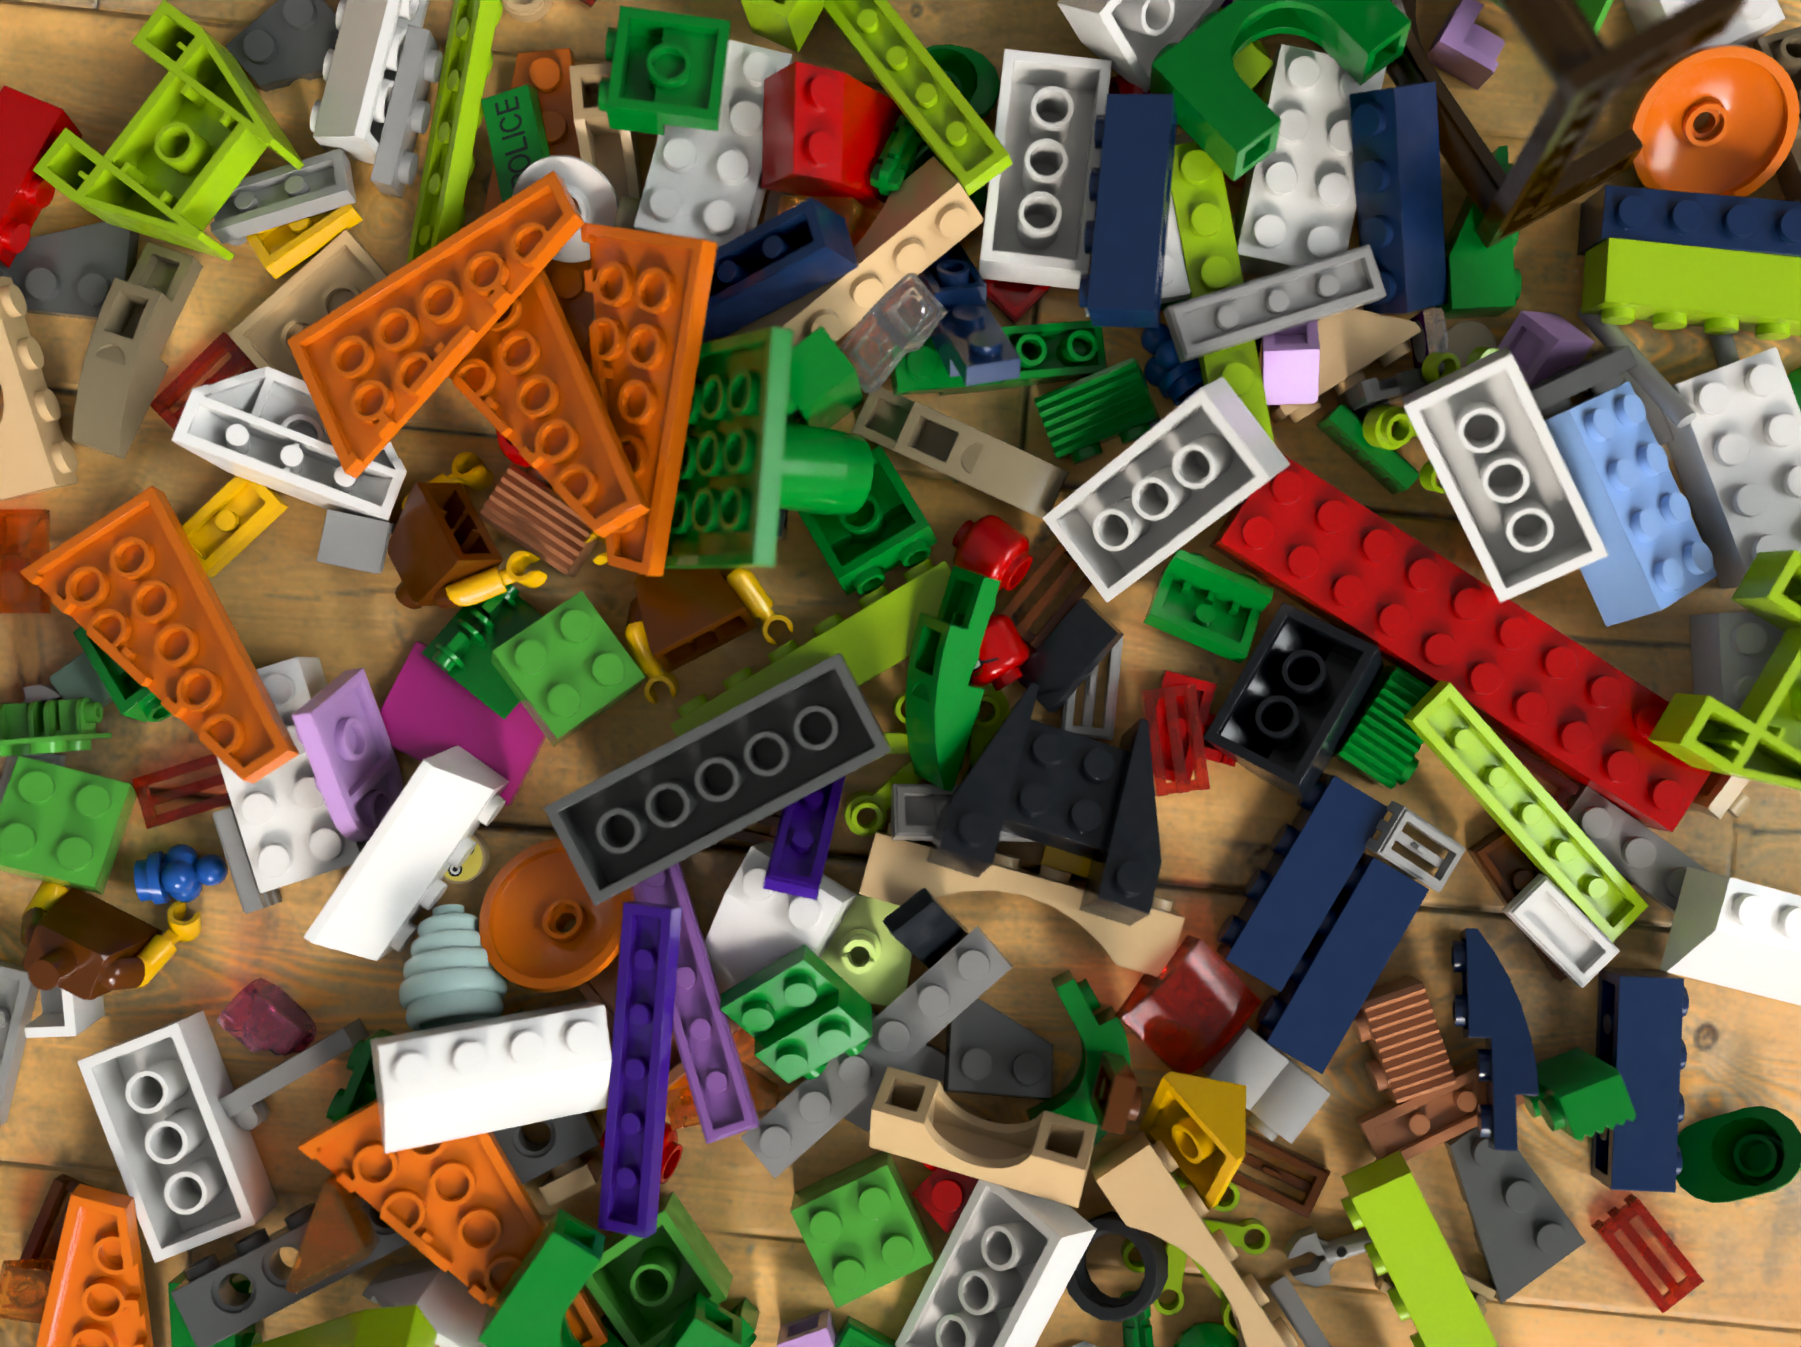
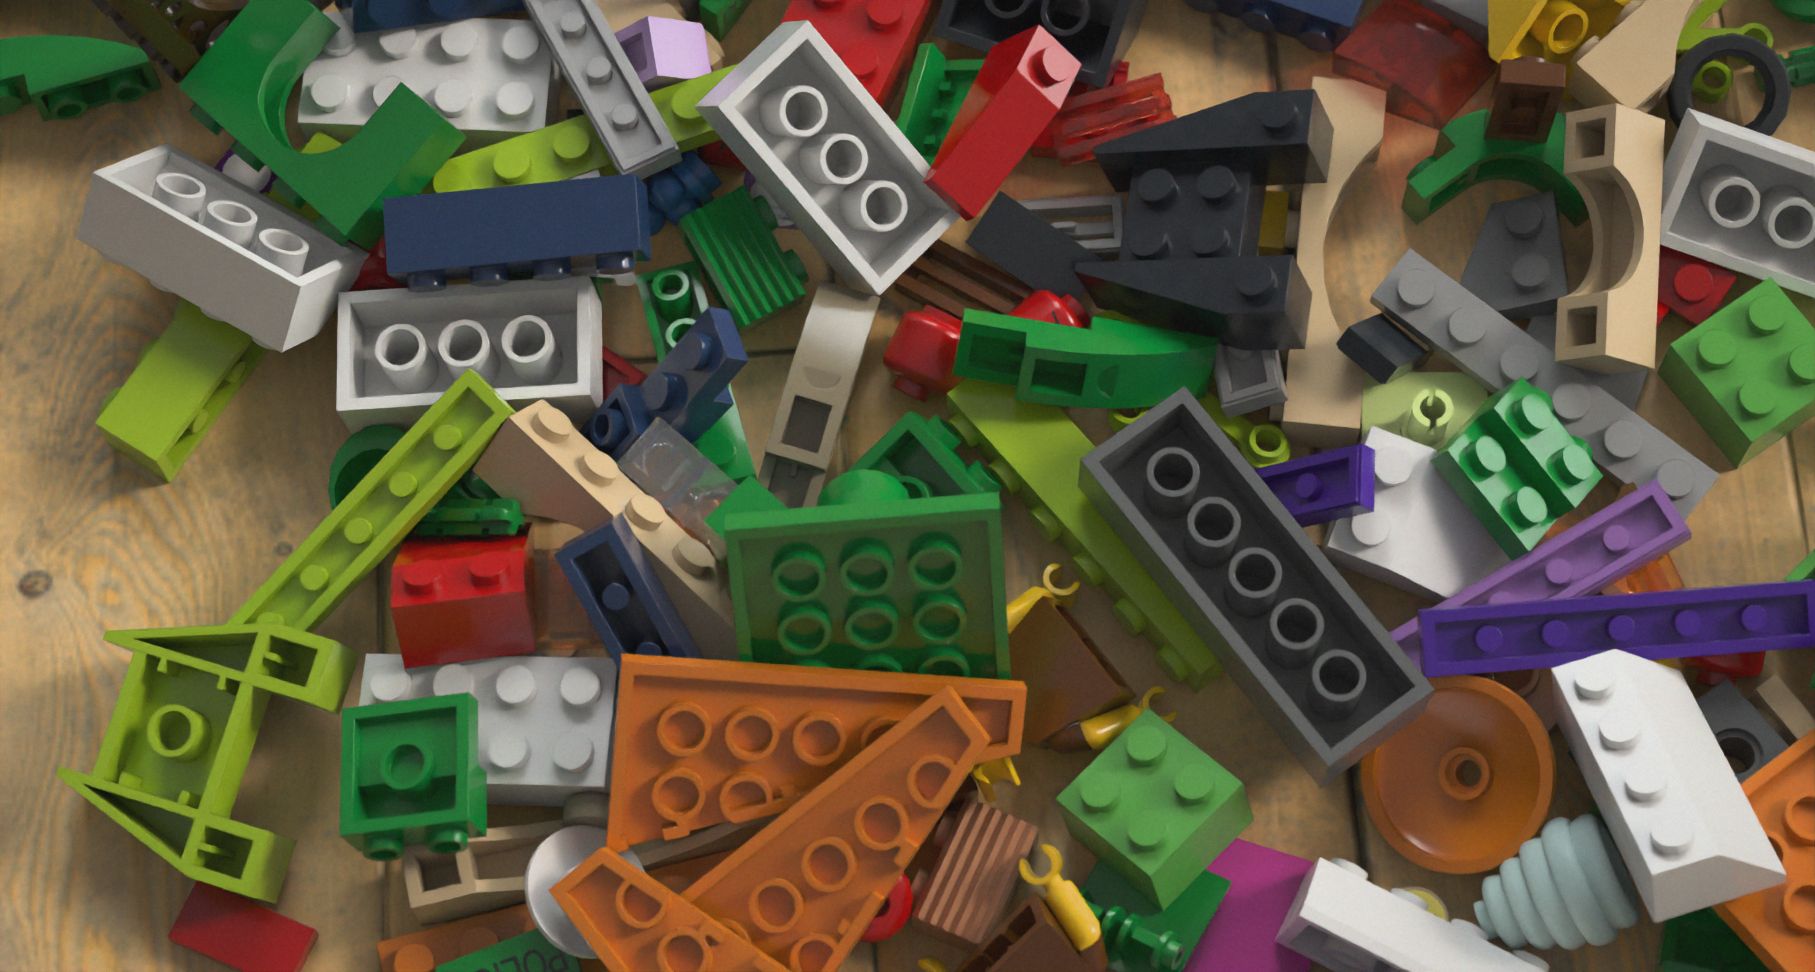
camera: 95 degrees left, 20 degrees down
(1182, 644) = (1001, 118): none -> red slope

